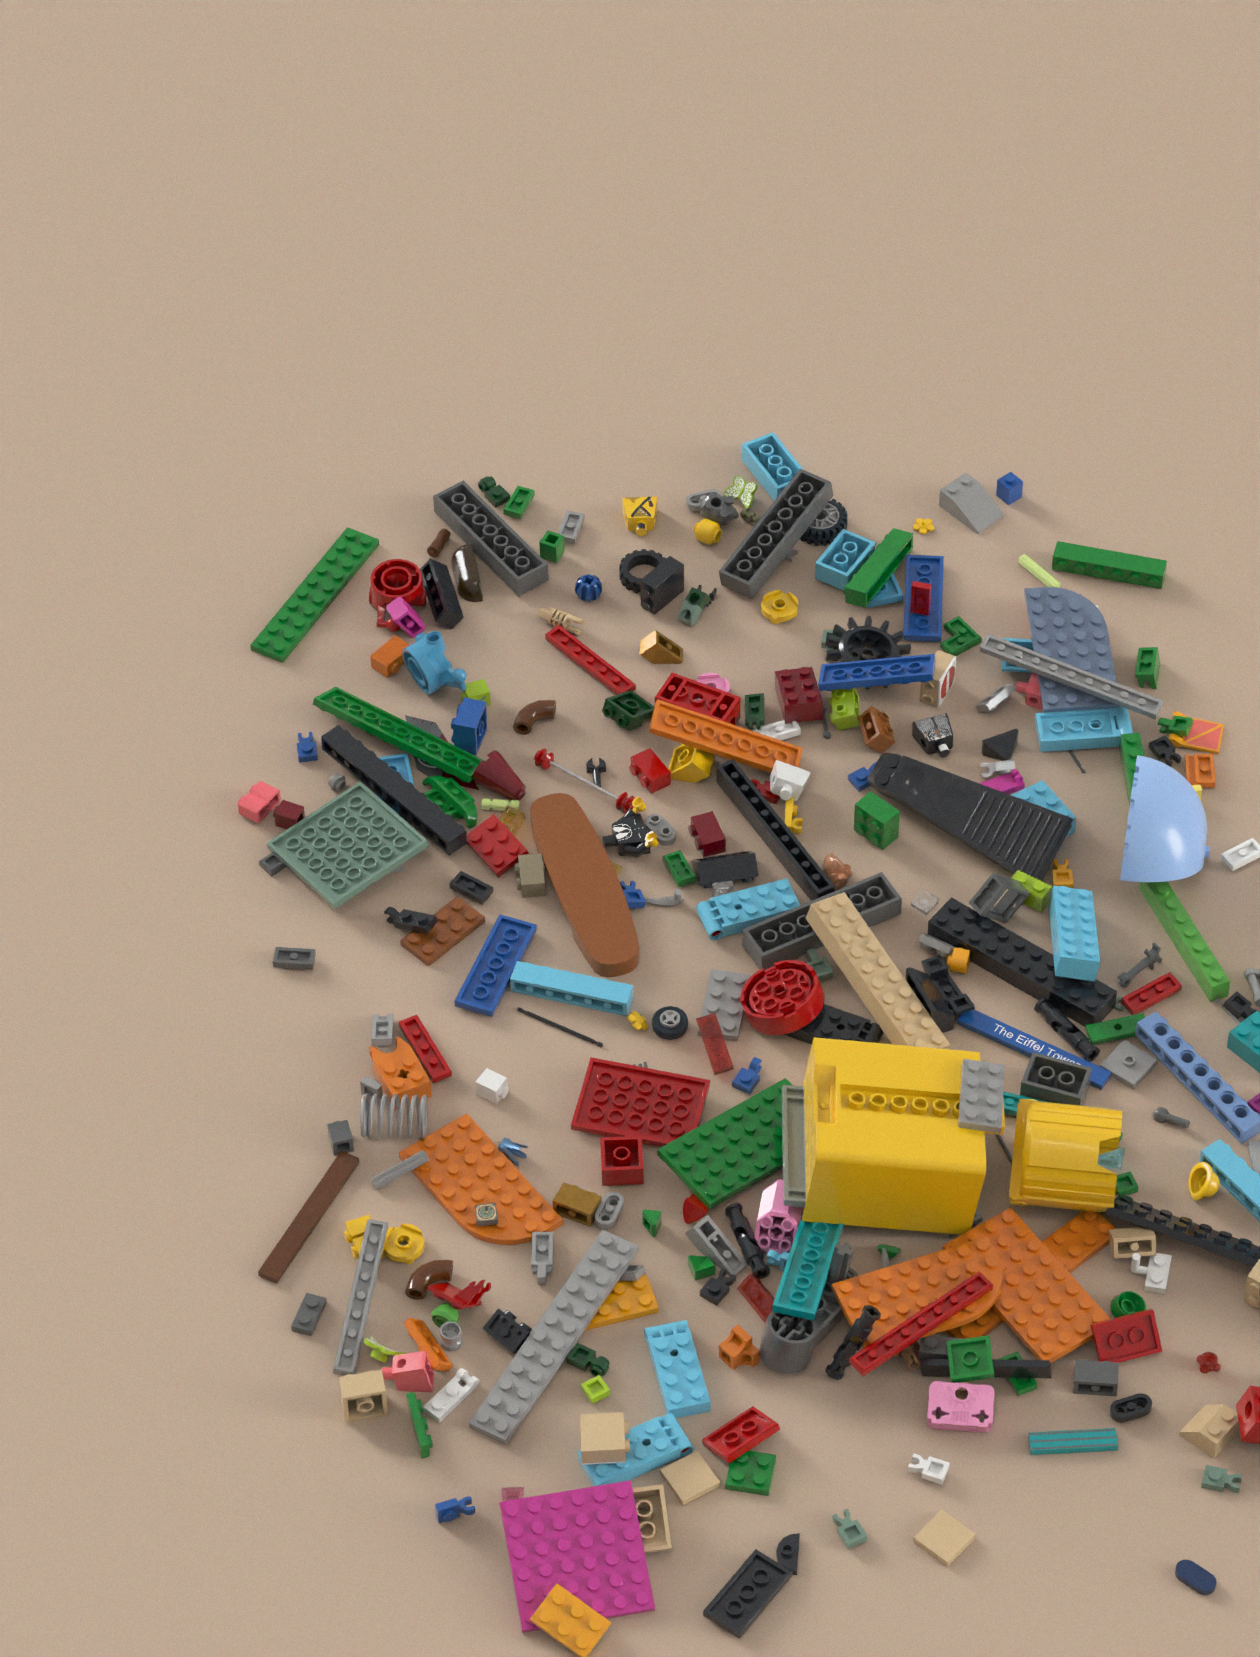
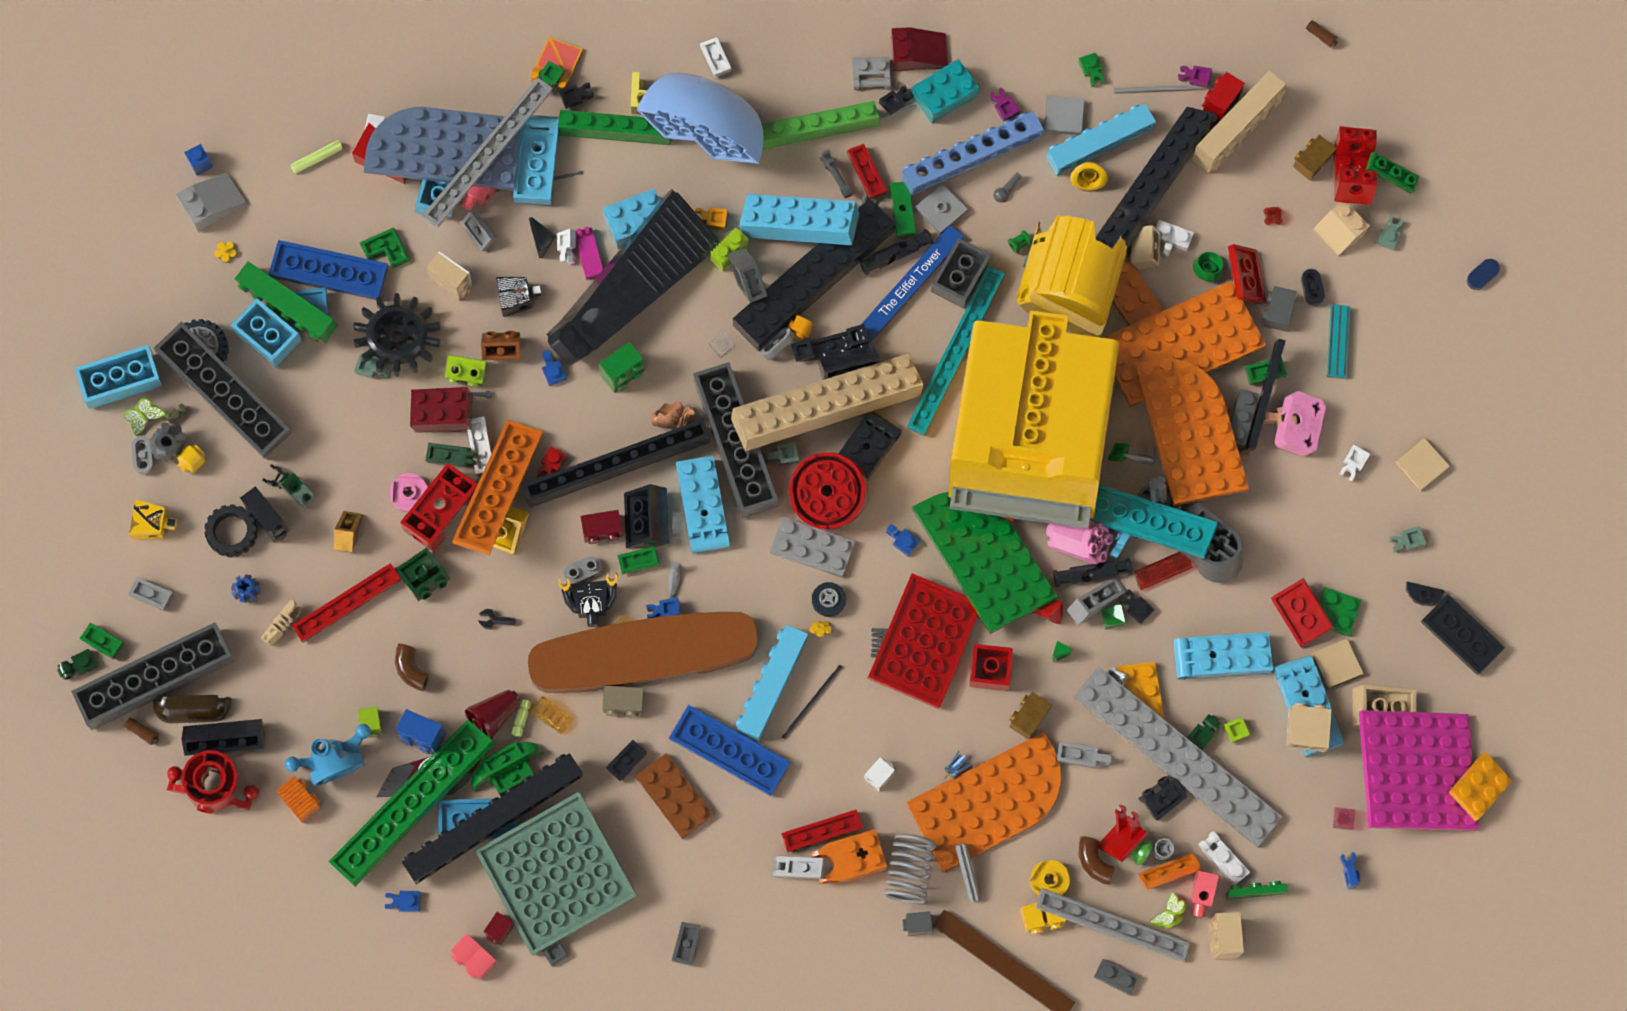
camera: 85 degrees left, 25 degrees up
(314, 595) = (186, 868): green plate -> none
(337, 782) = (460, 875): light grey plate -> none
(371, 1087) = (864, 886): light grey plate -> none
(406, 617) = (254, 776): dark pink brick -> none
(411, 920) = (662, 823): black plate -> none
(486, 1214) = (1034, 798): tile -> none
(495, 845) = (577, 729): red plate -> none
(547, 761) = (543, 600): red axle -> none
(552, 546) = (181, 615): green brick -> none
(607, 1211) = (1040, 687): light grey plate -> none
(650, 770) = (508, 567): red brick -> none
(714, 1043) = (865, 562): clear red plate -> none
(739, 1349) = (1212, 599): orange brick -> none
(779, 614) = (318, 413): yellow plate -> none
(788, 780) = (555, 439): white torso -> none
(794, 825) = (587, 445): yellow plate -> none
(860, 1329) = (1239, 497): black piece -> none
(877, 672) = (445, 327): blue plate -> none
(920, 598) = (346, 269): red plate -> none
(921, 1323) = (1231, 436): red tile -> none
(970, 1359) = (1267, 403): green plate -> none
(981, 1096) = (1034, 328): light grey plate -> none
(1109, 565) = (324, 91): green brick -> none
(1148, 666) = (467, 85): green hinge -> none
(1200, 770) = (606, 70): orange plate -> none

